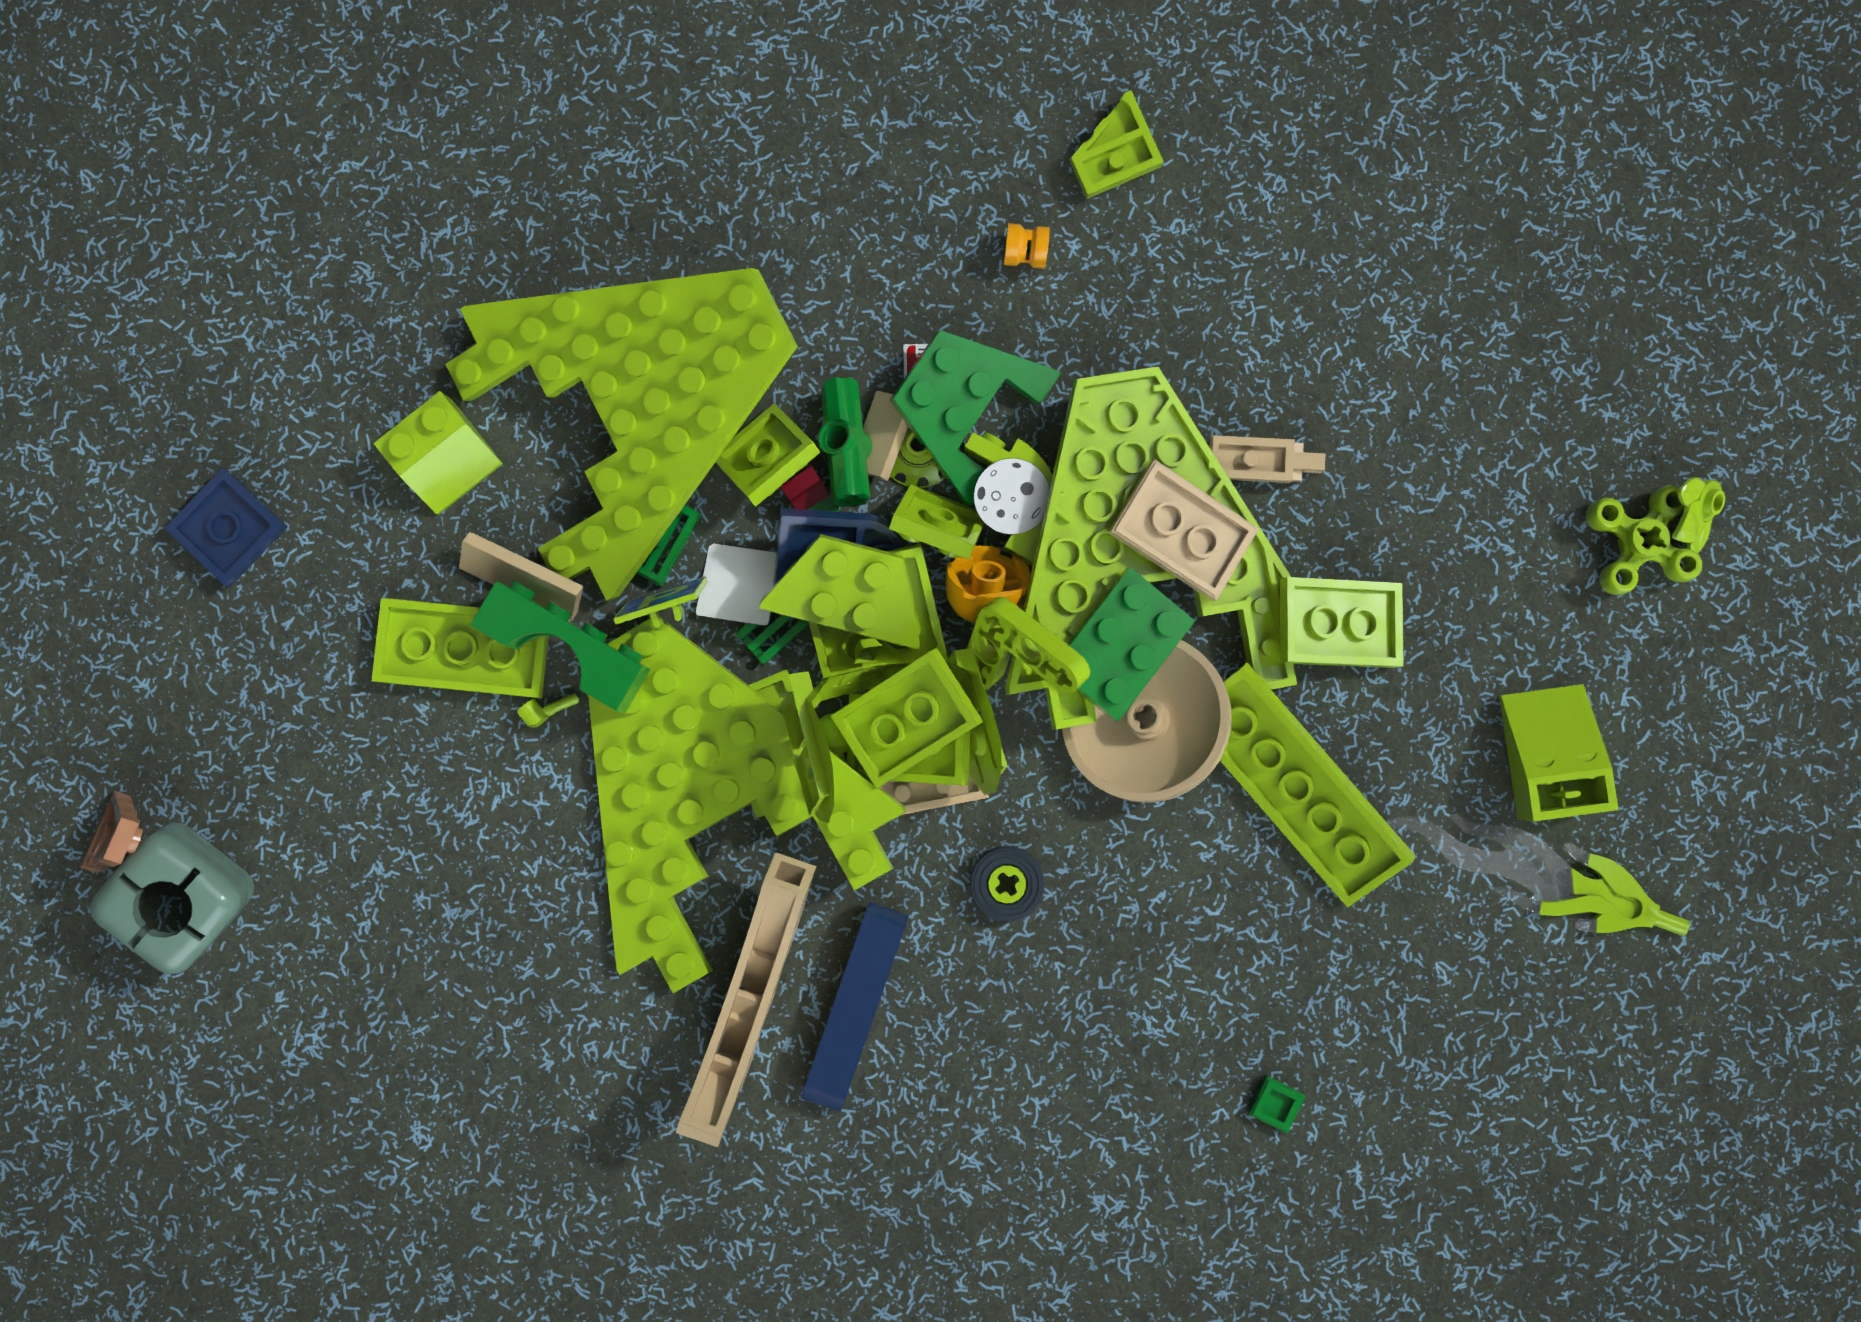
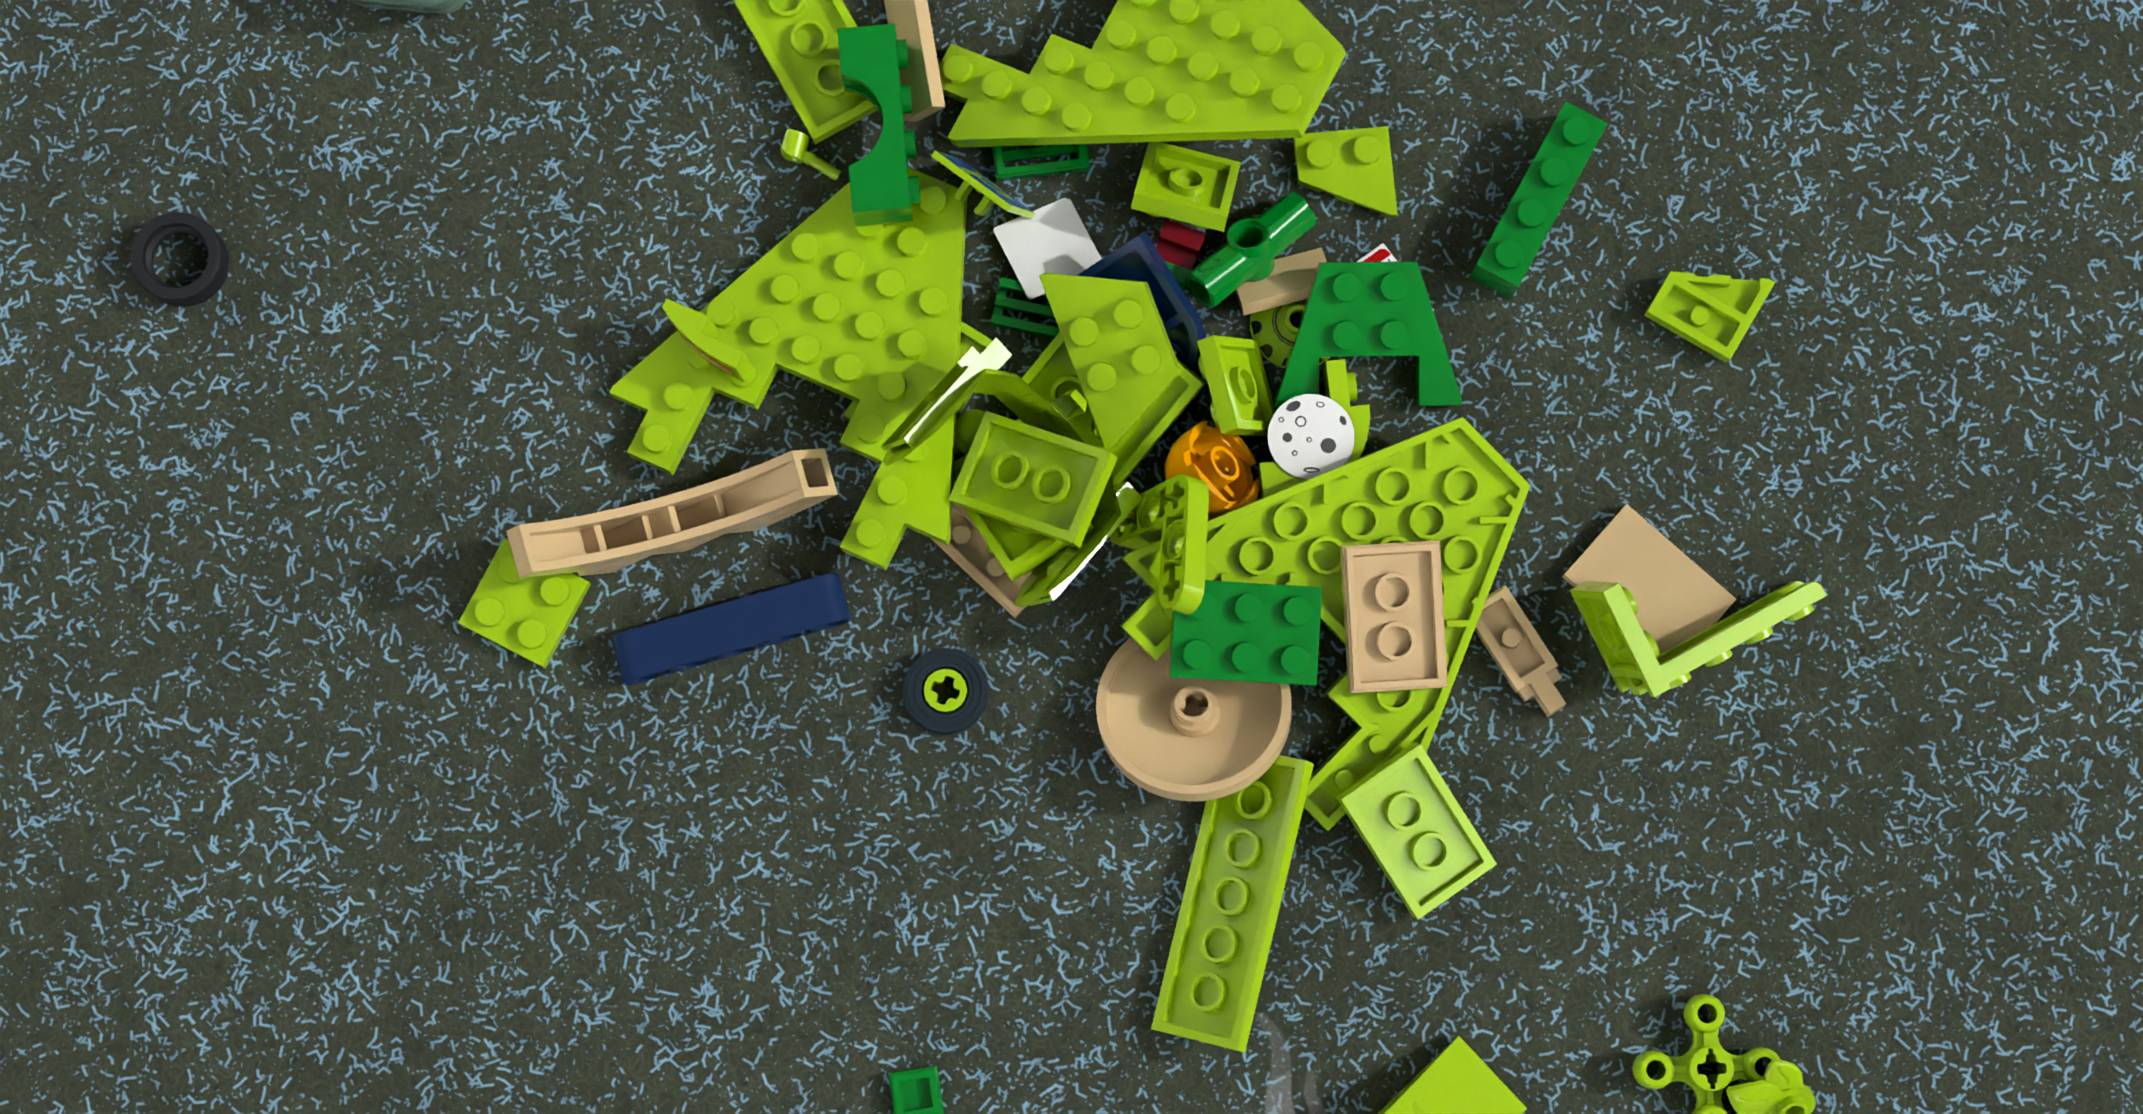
camera: 55 degrees right, 5 degrees down
(266, 1237) = (158, 230): none -> black tyre
(626, 882) = (700, 334): none -> lime slope
(744, 1152) = (524, 612): none -> lime plate
(834, 328) = (1349, 166): none -> lime wing
(955, 211) = (1538, 200): none -> green arch
(1017, 246) = (1552, 279): light orange wheel -> none
(1281, 336) = (1669, 588): none -> tan tile
(1331, 381) = (1634, 655): none -> lime bracket

